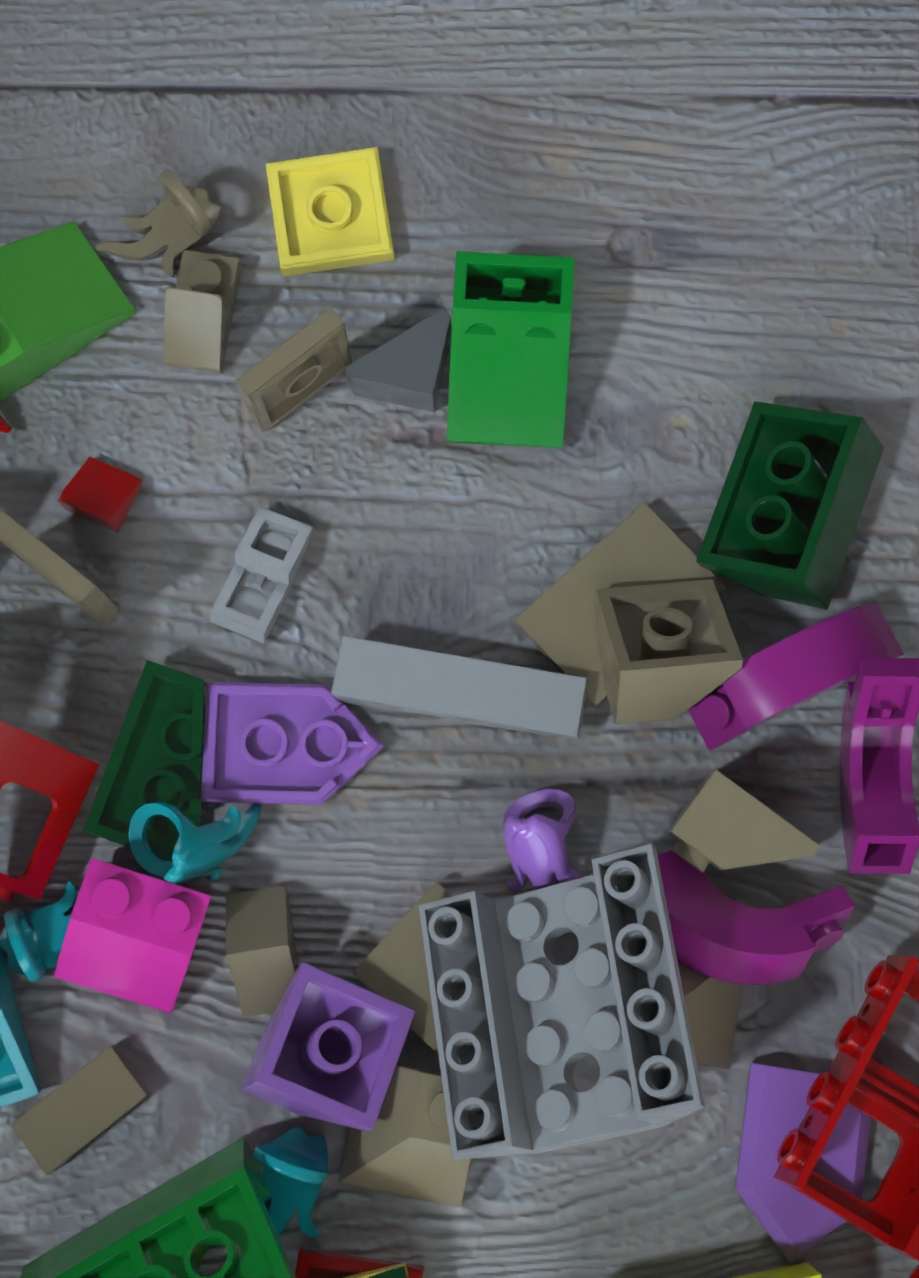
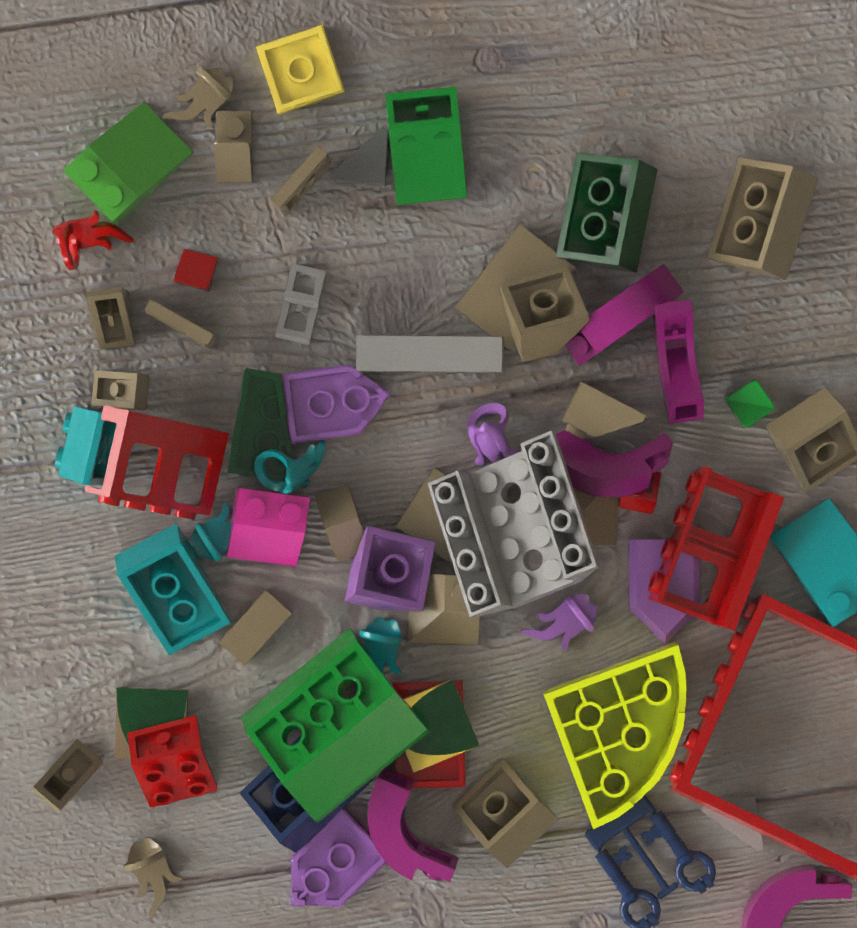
camera: 20 degrees left, 10 degrees up
(630, 1186) = (570, 618): none -> medium lavender piece
(787, 999) = (645, 500): none -> red slope

